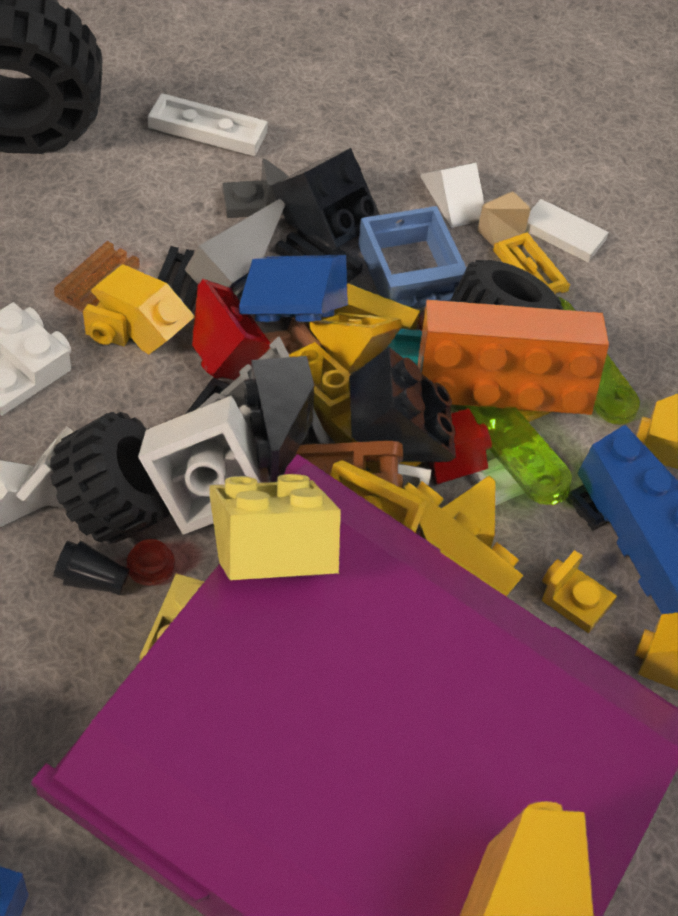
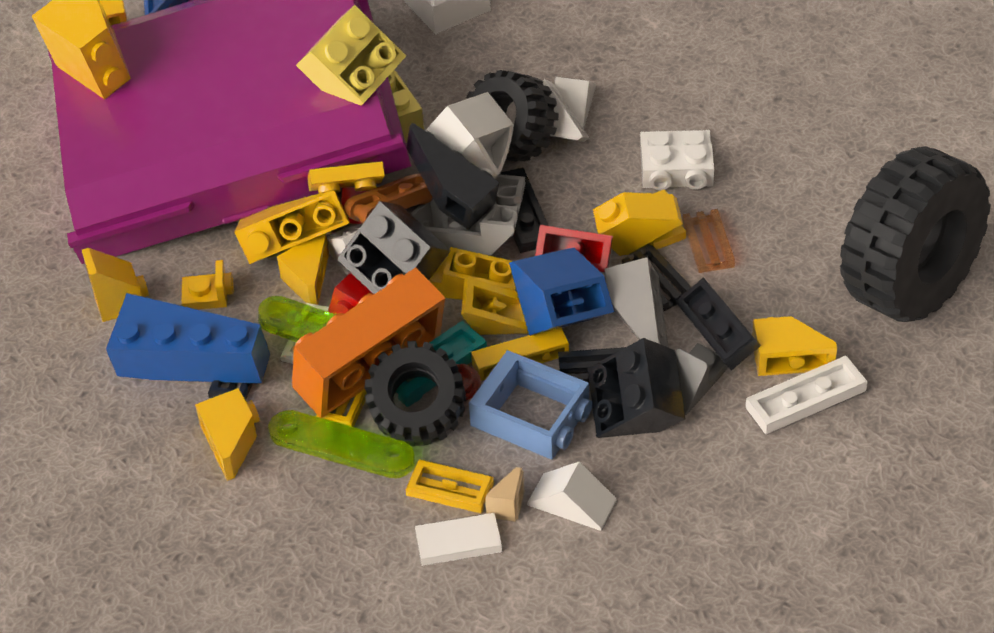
camera: 145 degrees right, 5 degrees down
(178, 153) = (790, 346): none -> yellow slope
(199, 198) = (717, 324): none -> black tile

